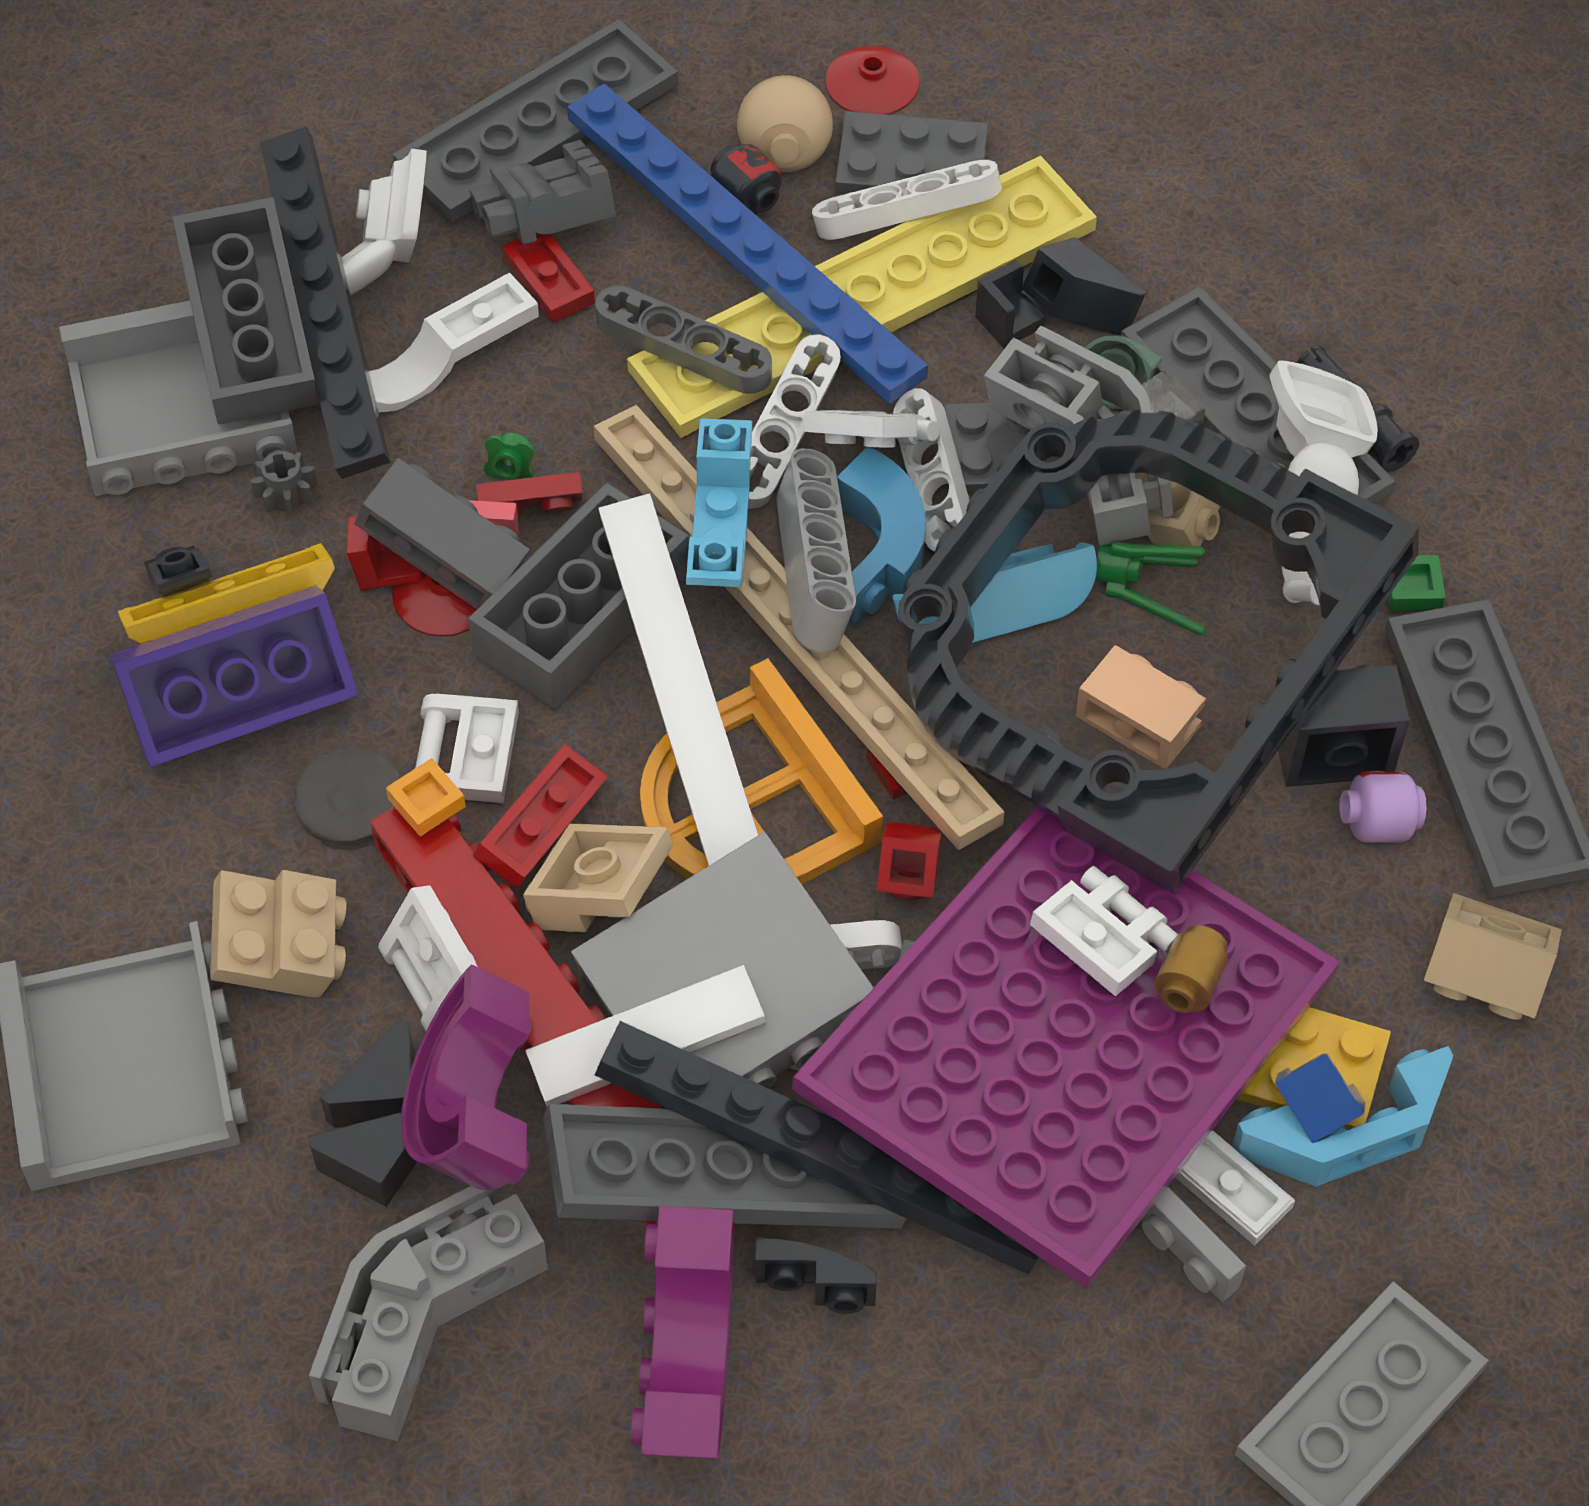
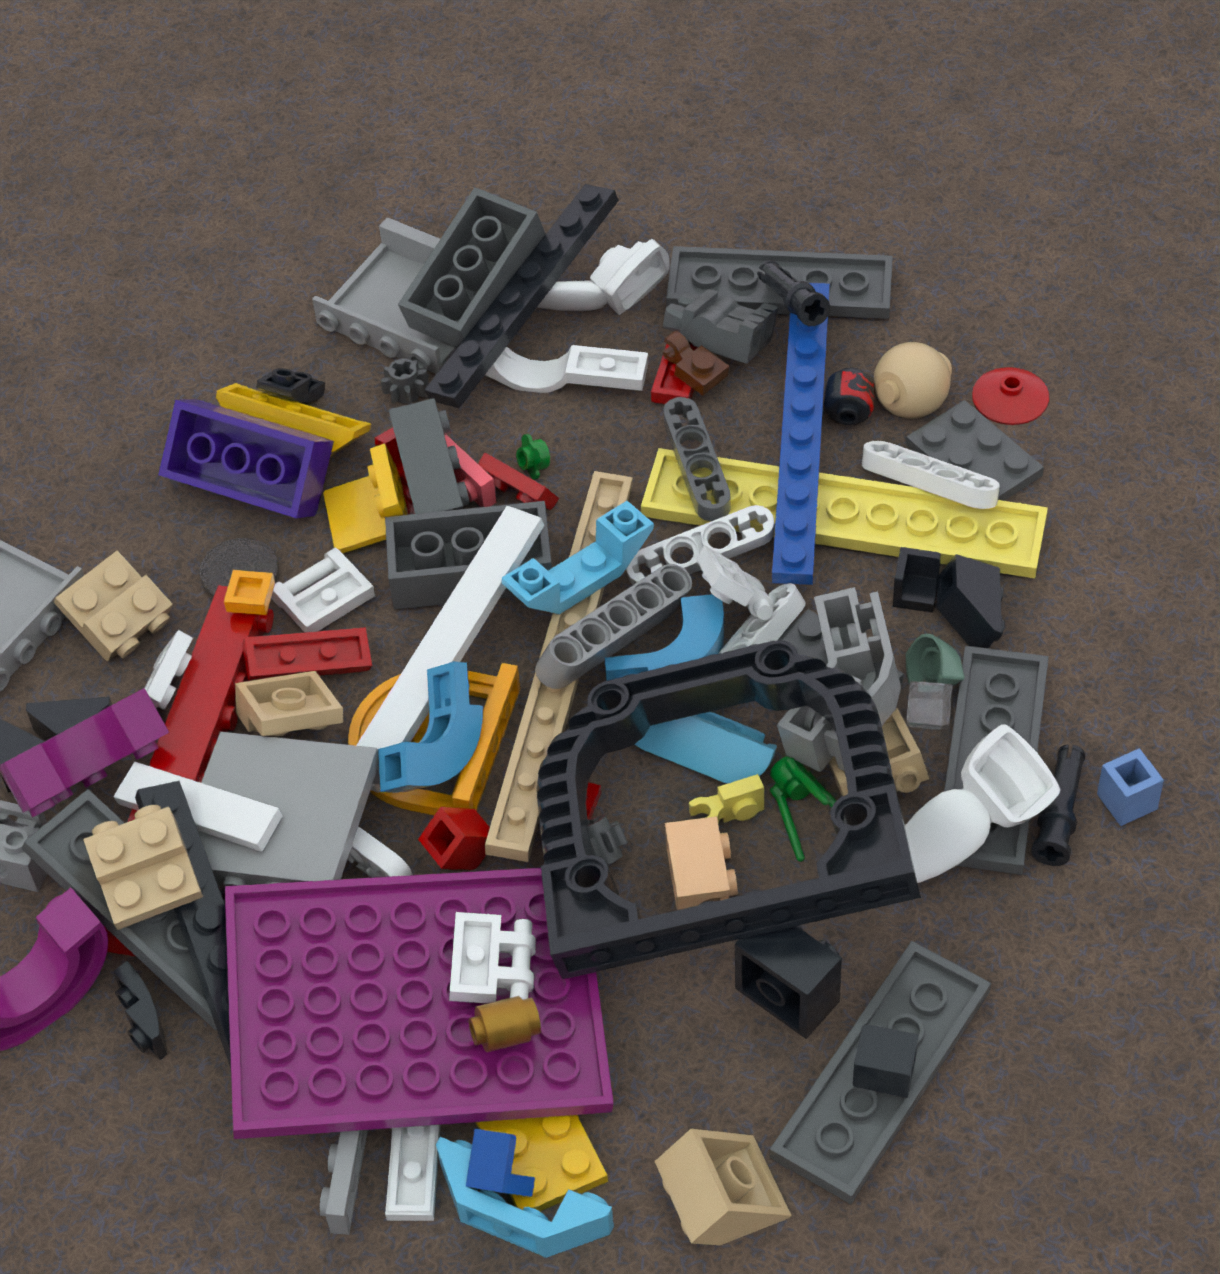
camera: 50 degrees right, 5 degrees down
(411, 626) = (360, 506): none -> yellow bracket
(571, 252) = (696, 368): none -> reddish brown plate
(609, 111) = (797, 296): none -> black pin
(702, 1125) = (142, 866): none -> tan plate
(797, 773) = (449, 739): none -> dark azure arch
(1100, 621) = (734, 800): none -> light yellow plate
(1383, 807) = (764, 1045): lavender head -> none
(1401, 345) = (1130, 787): none -> medium blue brick
(1419, 587) = (960, 936): green plate -> none
(1512, 725) = (885, 1060): none -> black panel

